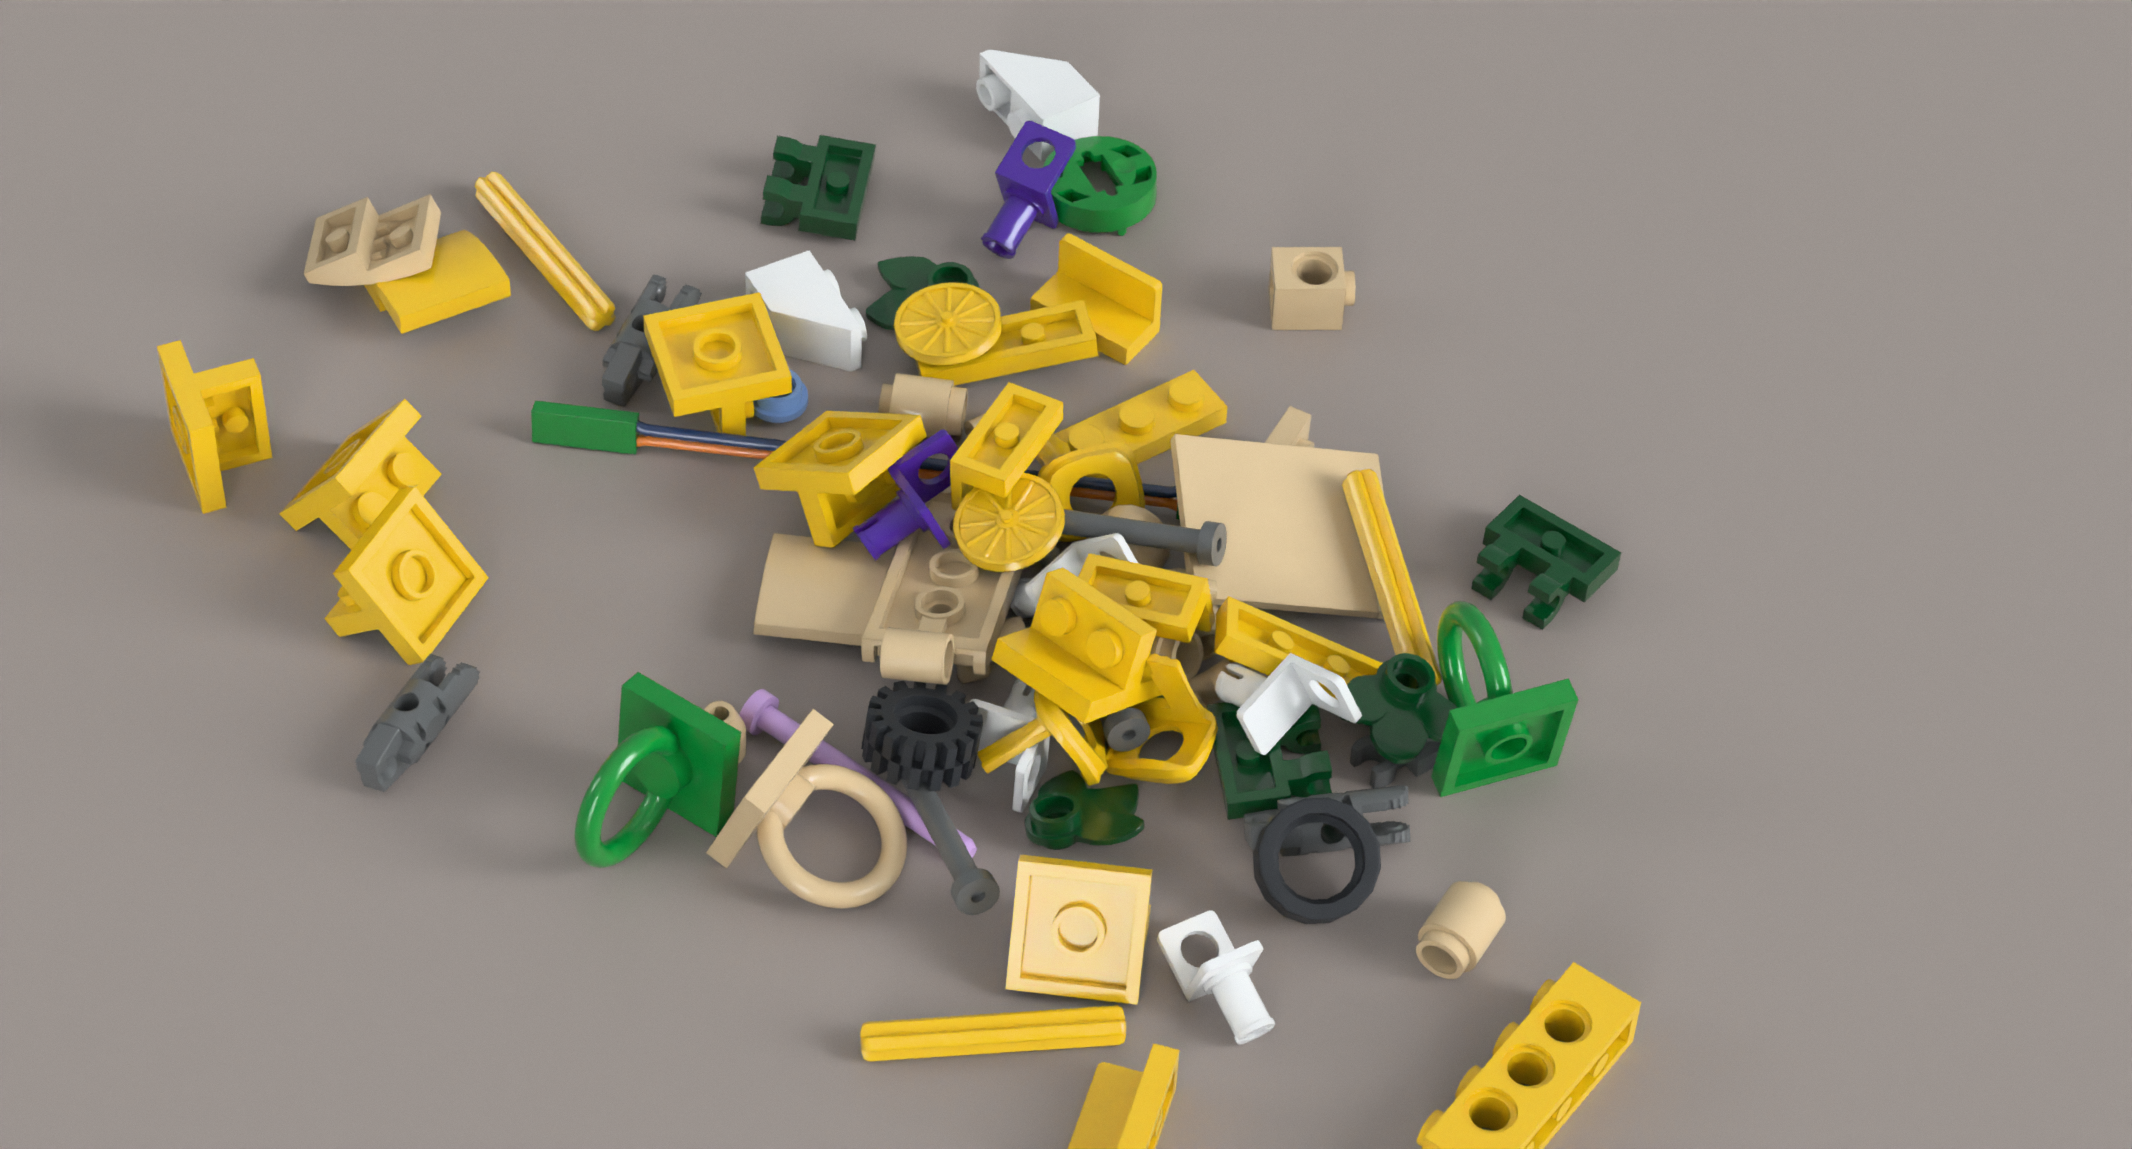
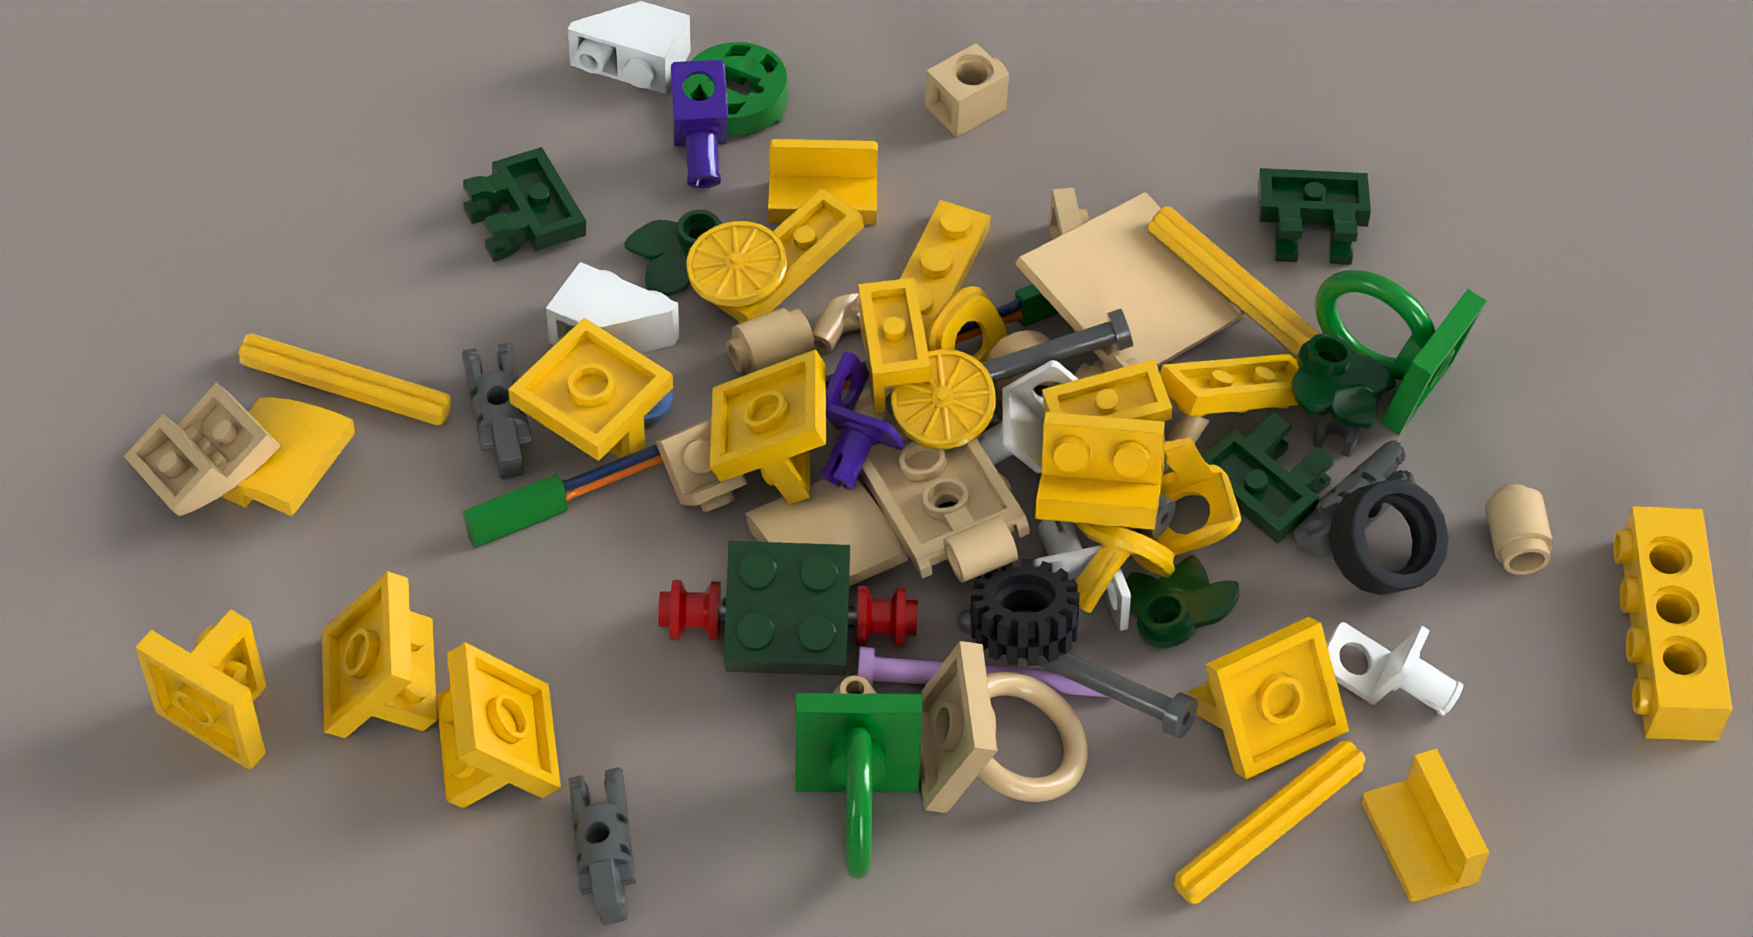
camera: 35 degrees left, 5 degrees up
(727, 623) = (787, 609): none -> dark green brick
(752, 449) = (688, 466): none -> tan bracket
(1277, 702) = (1259, 427): white bracket -> none

